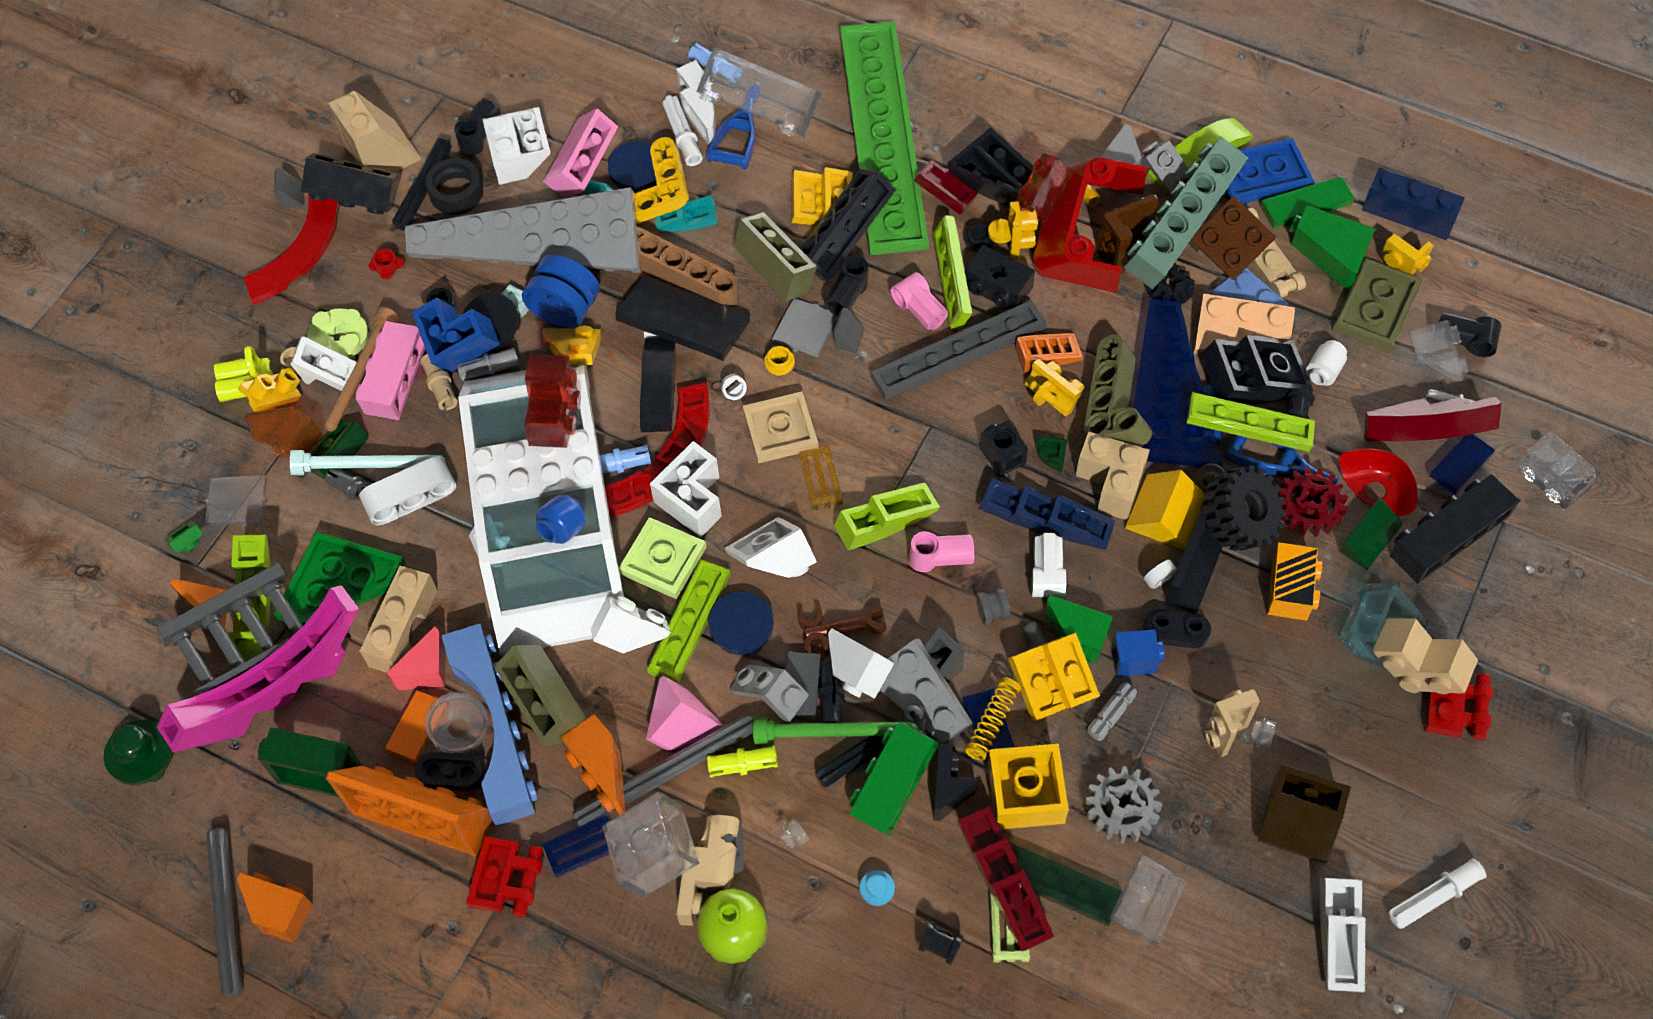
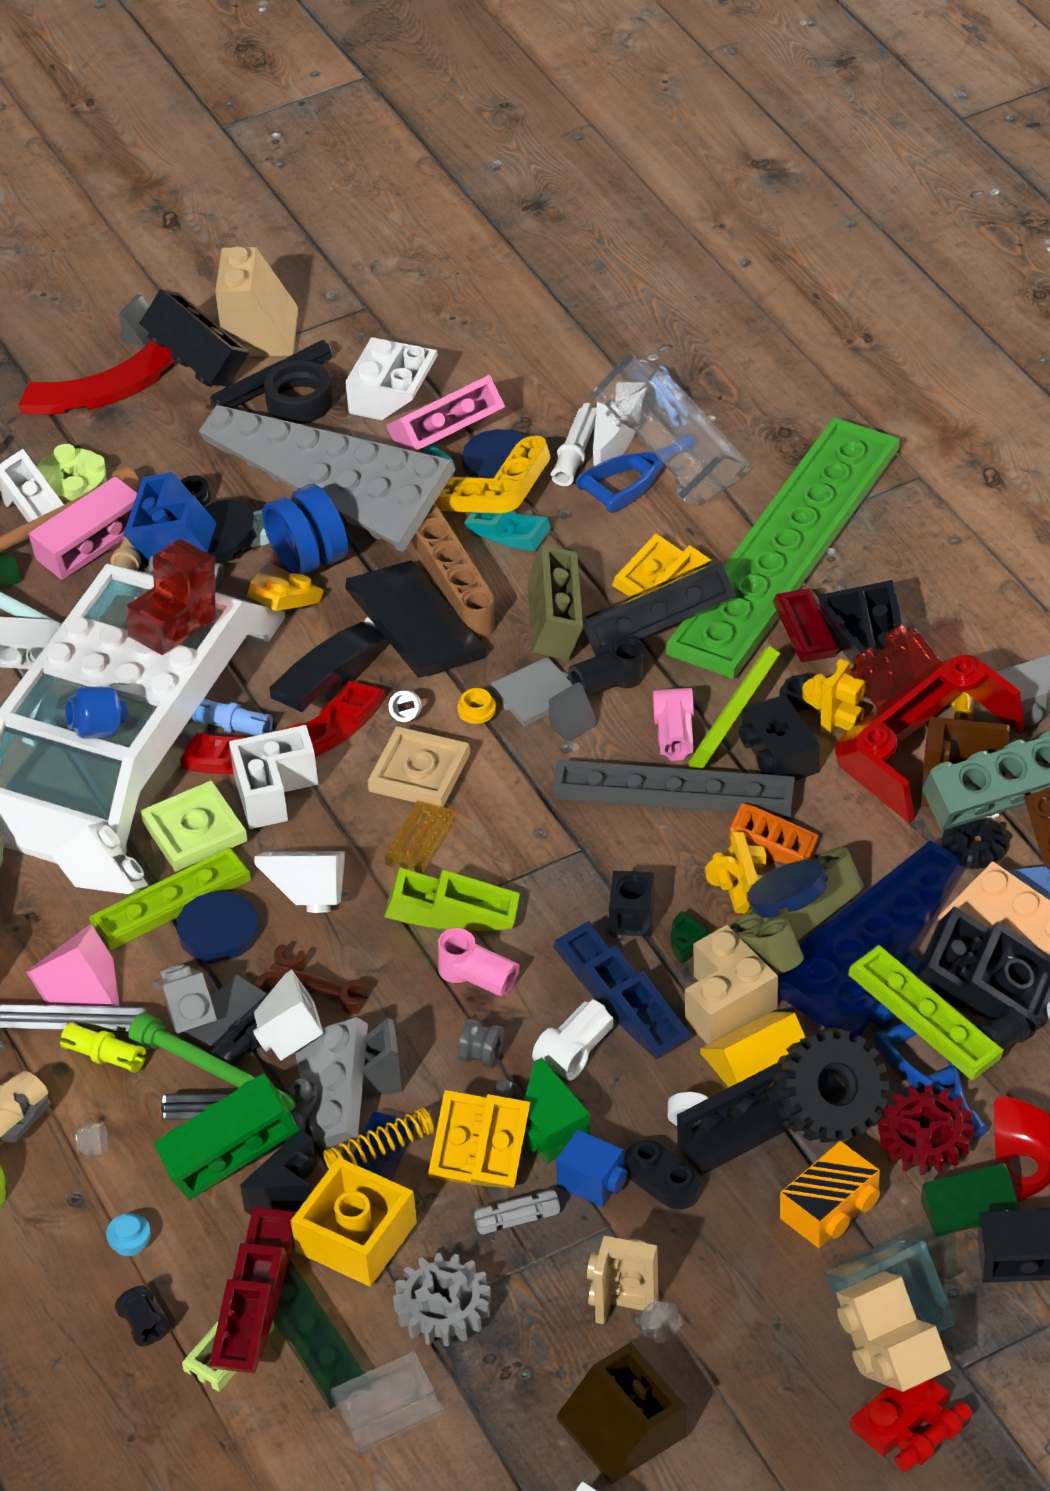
camera: 35 degrees right, 15 degrees down
(384, 257) = (171, 432): red plate -> none
(471, 130) = (353, 342): black piece -> none
(1109, 384) = (787, 886): none -> dark blue tile

